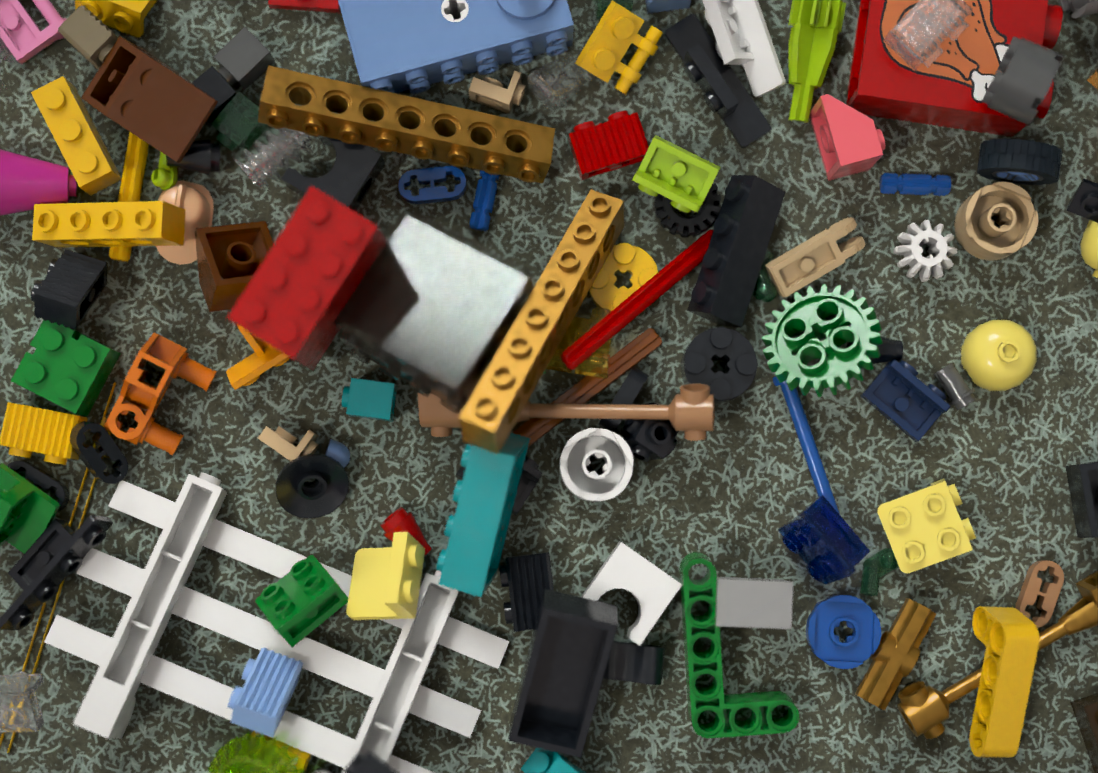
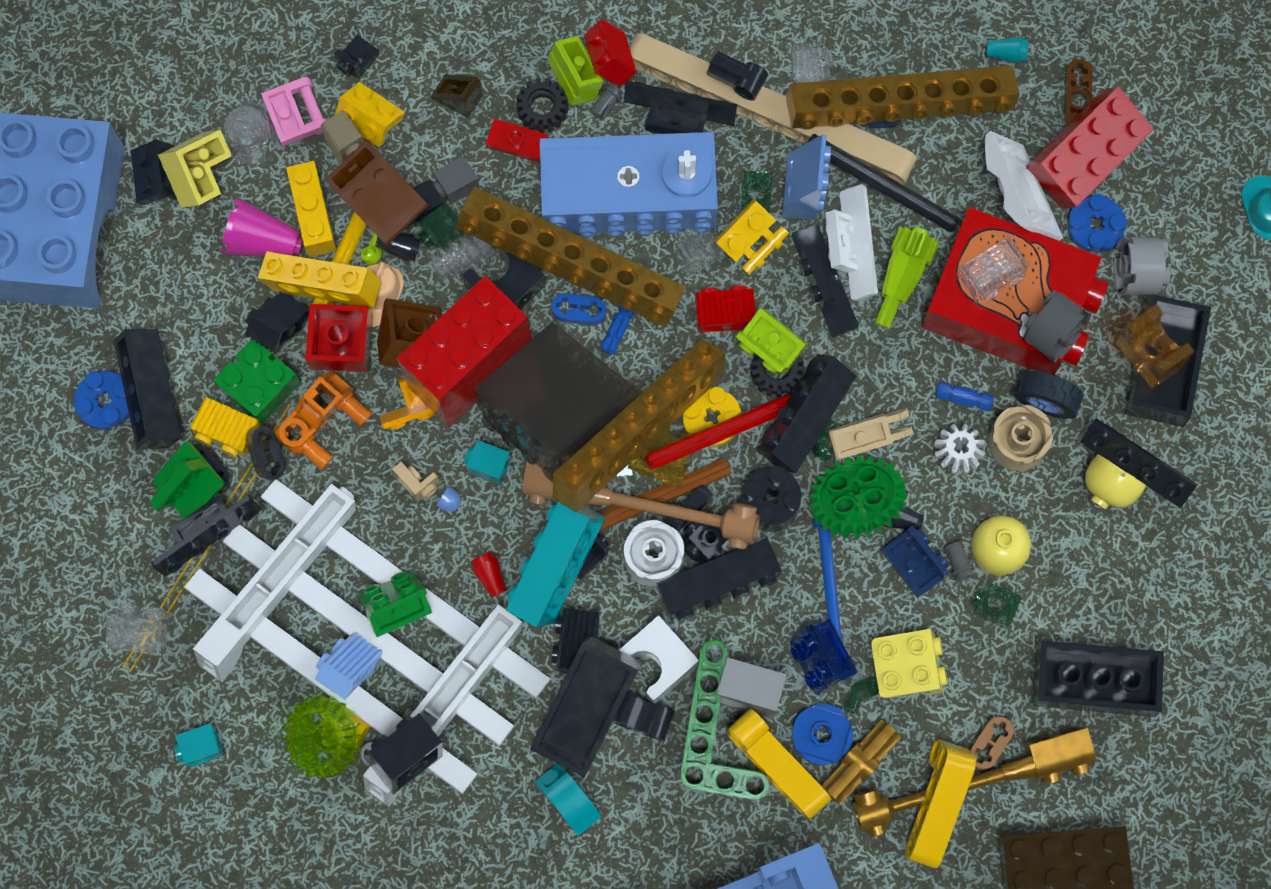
camera: 20 degrees right, 10 degrees down
(151, 289) = (338, 337): none -> red brick
(315, 497) = (424, 530): black dish -> none
(386, 580) = (466, 603): light yellow bracket -> none
(492, 94) = (643, 250): tan bracket -> none
(680, 476) = (719, 579): none -> black brick
(802, 681) = (777, 764): none -> yellow beam
(845, 138) = (914, 346): coral slope -> none
(1026, 426) = (1009, 600): none -> clear green brick

